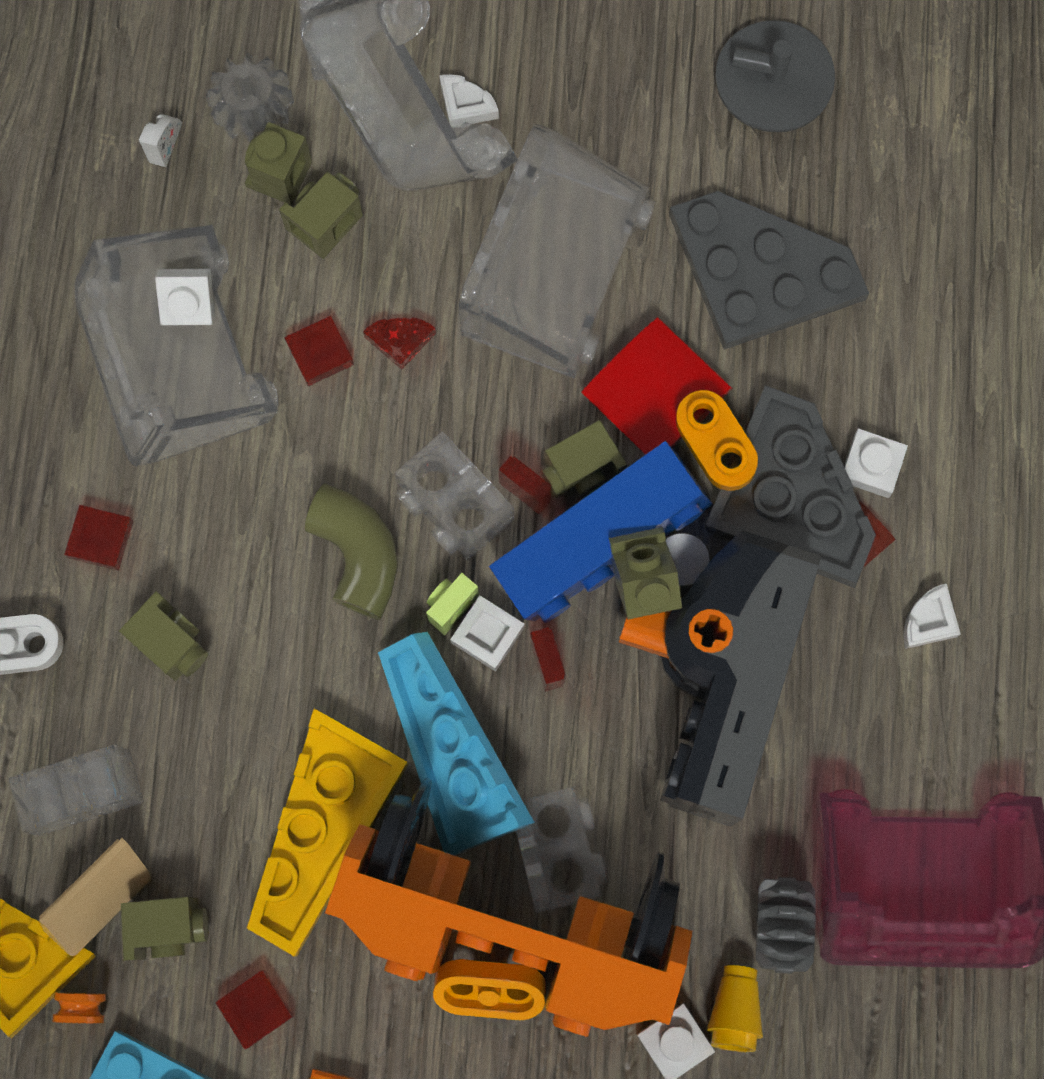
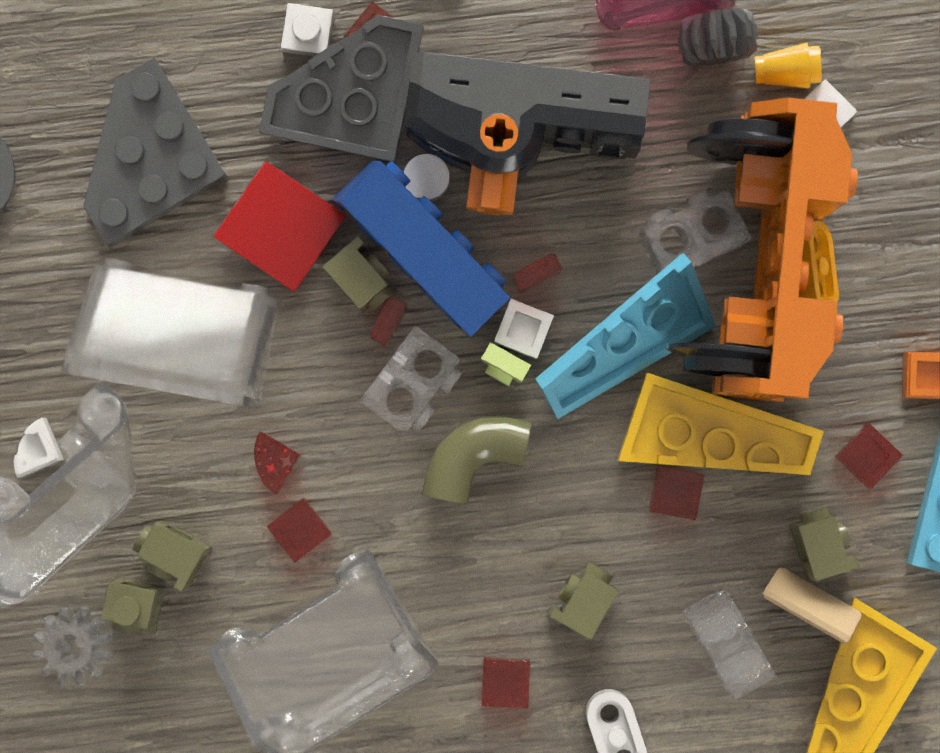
camera: 105 degrees left, 10 degrees up
(79, 1007) = (900, 597): orange bush -> none
(160, 139) = (129, 720): white tile -> none
(185, 296) = (277, 658): white plate -> none
(263, 771) = (676, 493): none -> clear red tile
(645, 573) = (459, 197): olive brick -> none
(716, 438) = (319, 163): light orange plate -> none

